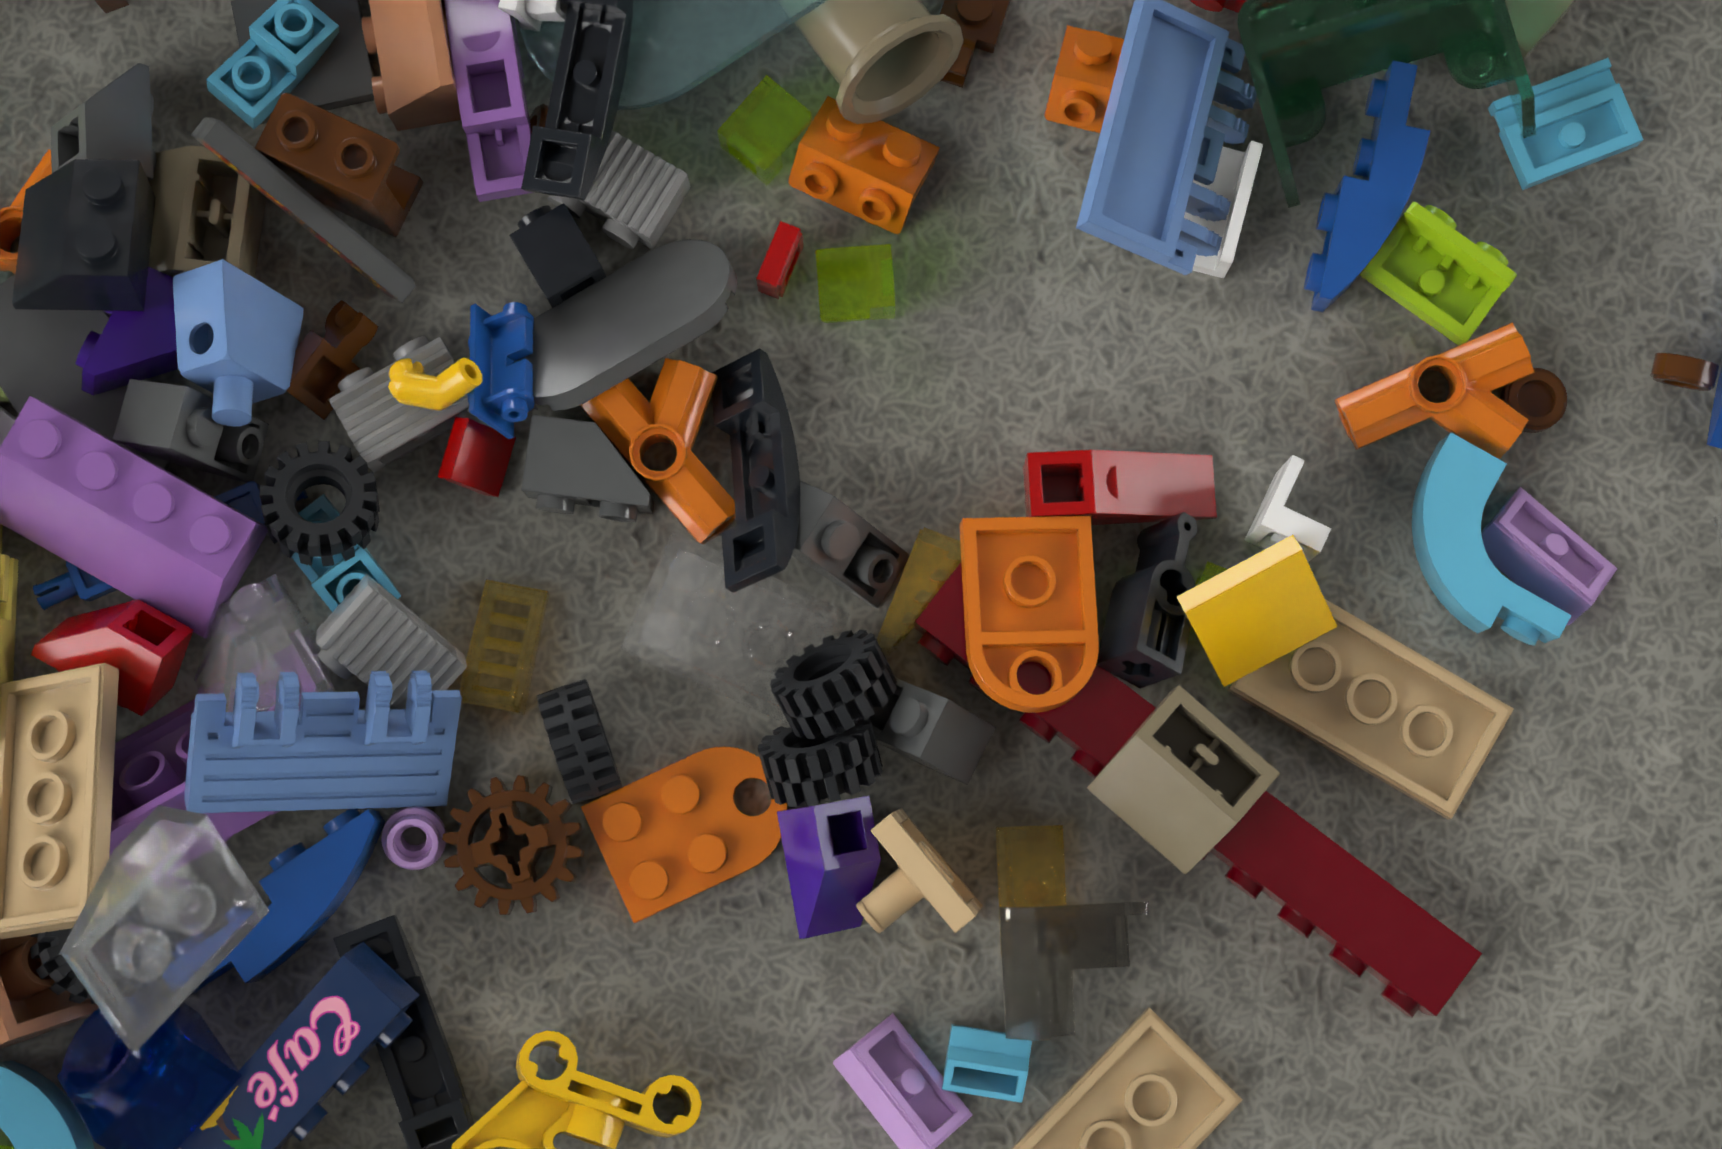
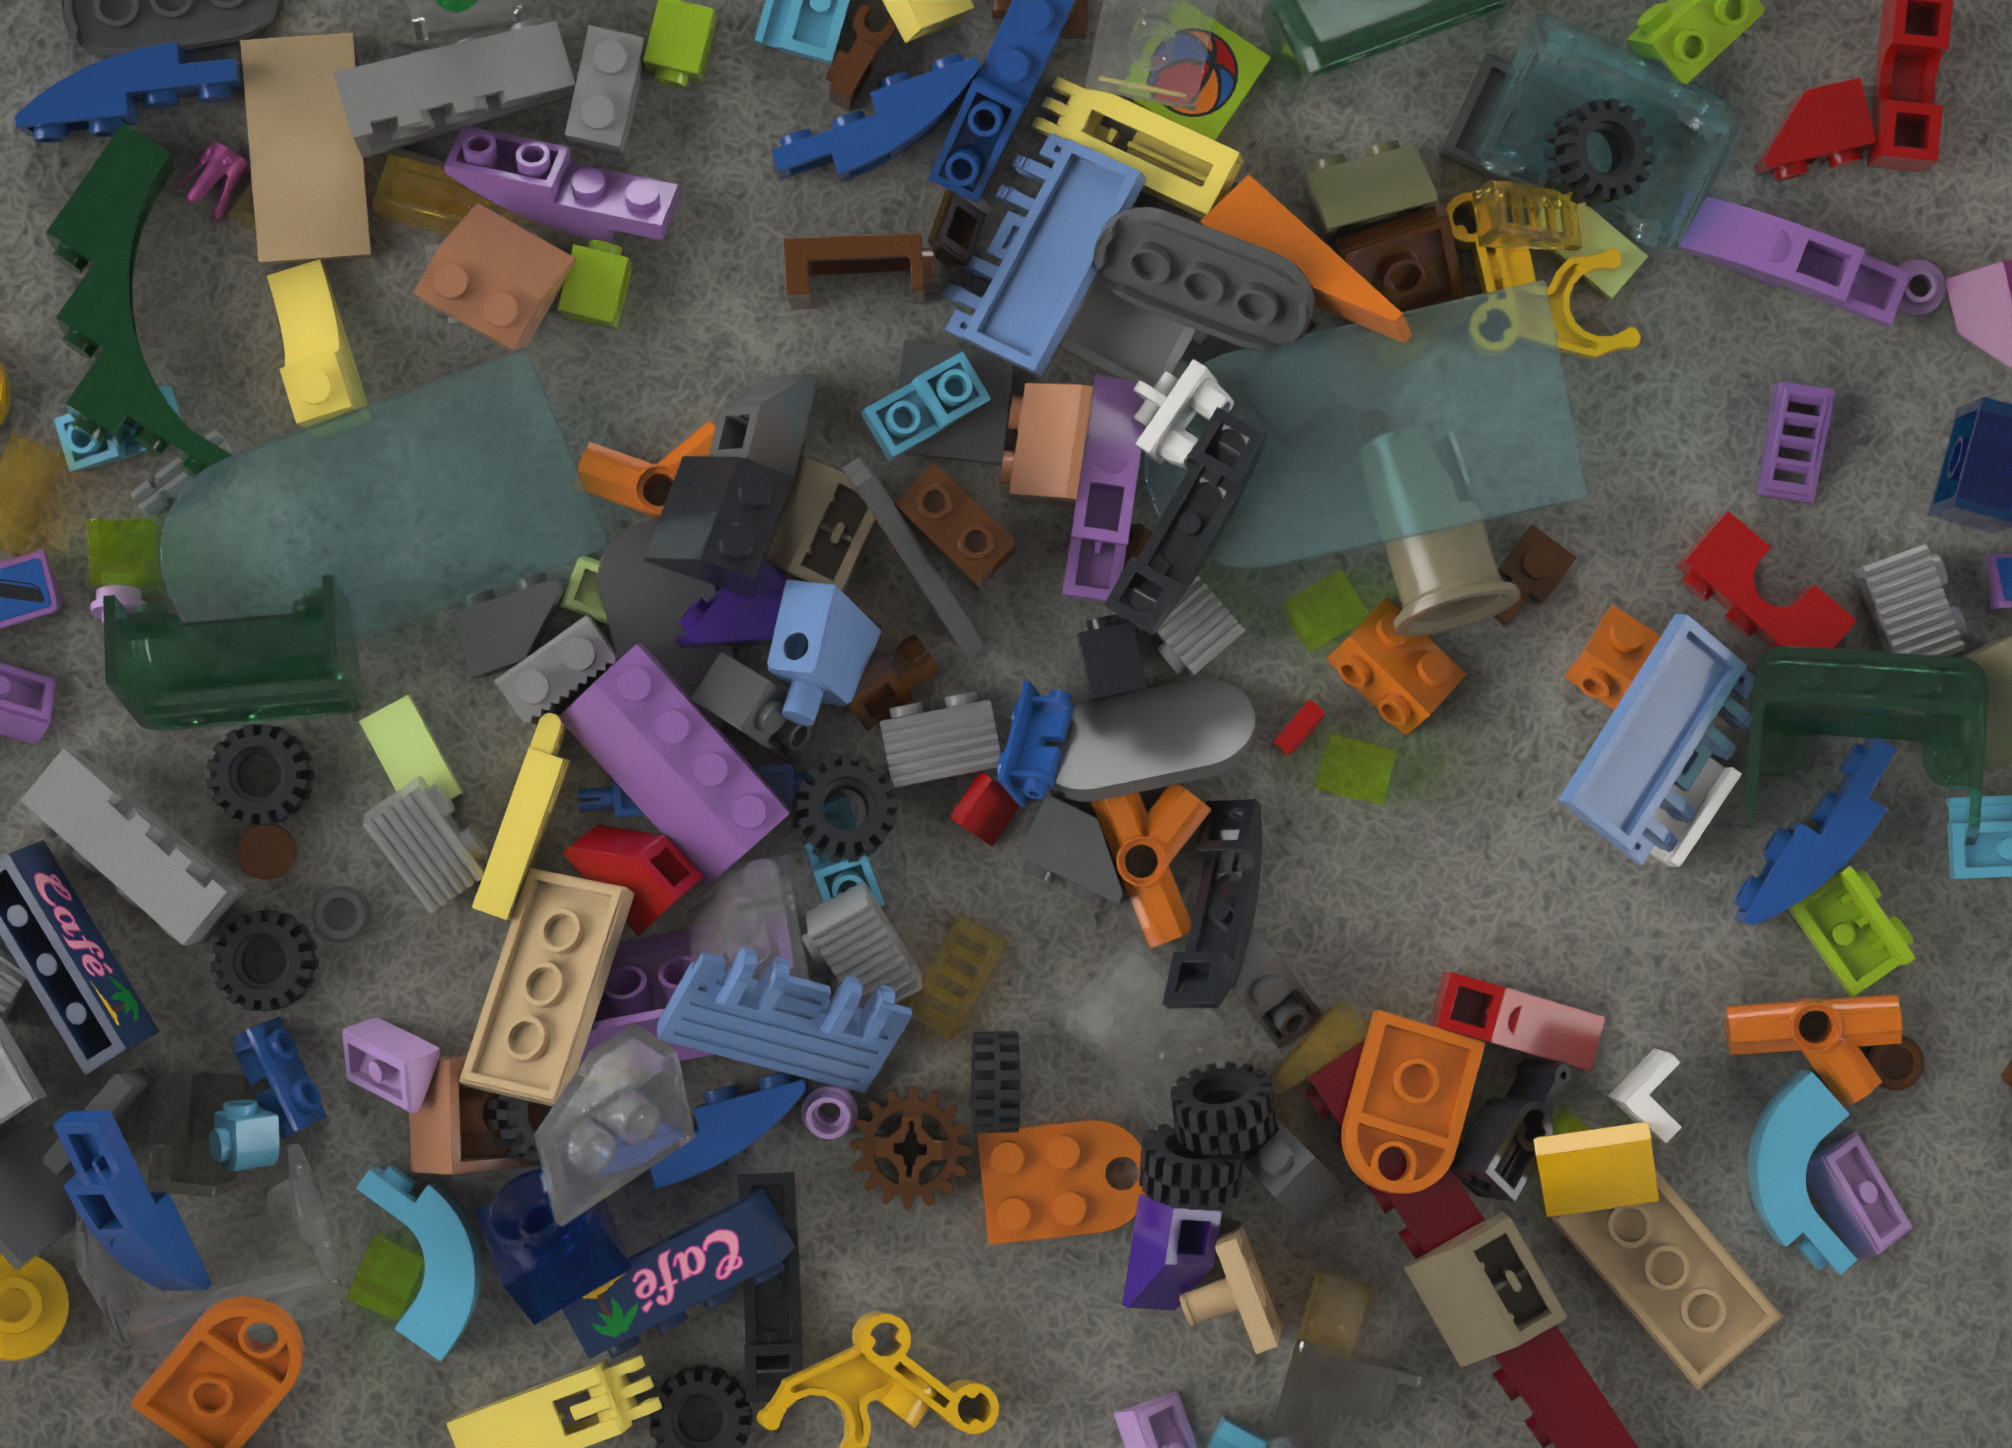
camera: 15 degrees right, 5 degrees up
(438, 392) = (973, 751): yellow arm -> none

